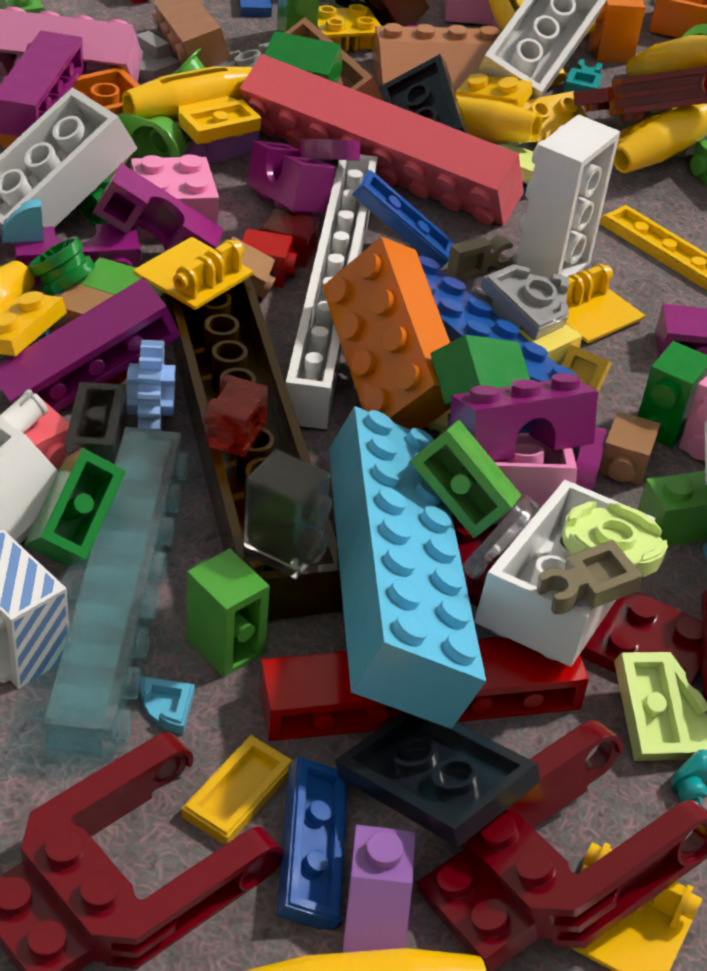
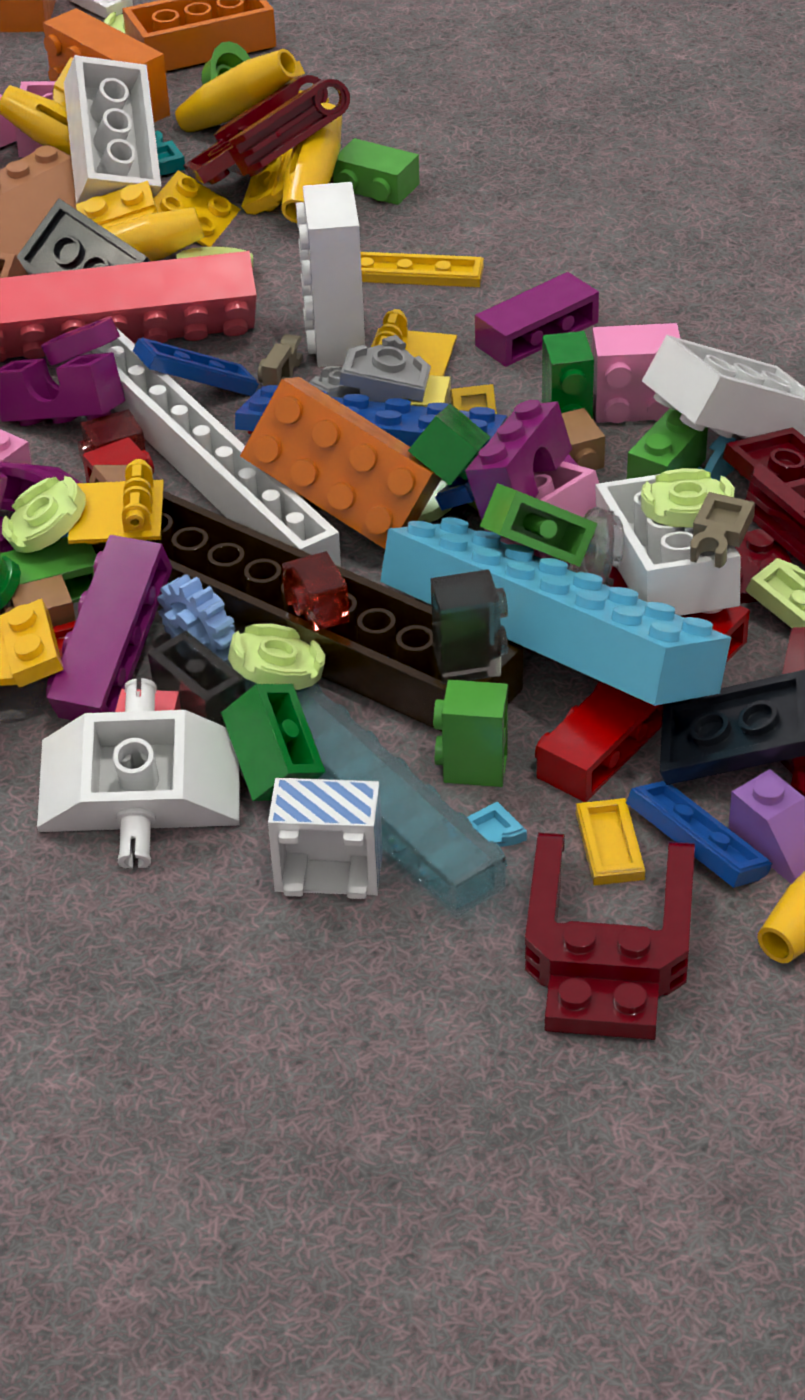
camera: 35 degrees left, 0 degrees up
(152, 244) = (44, 514): none -> yellowish green tile
(161, 448) = (276, 656): none -> yellowish green tile

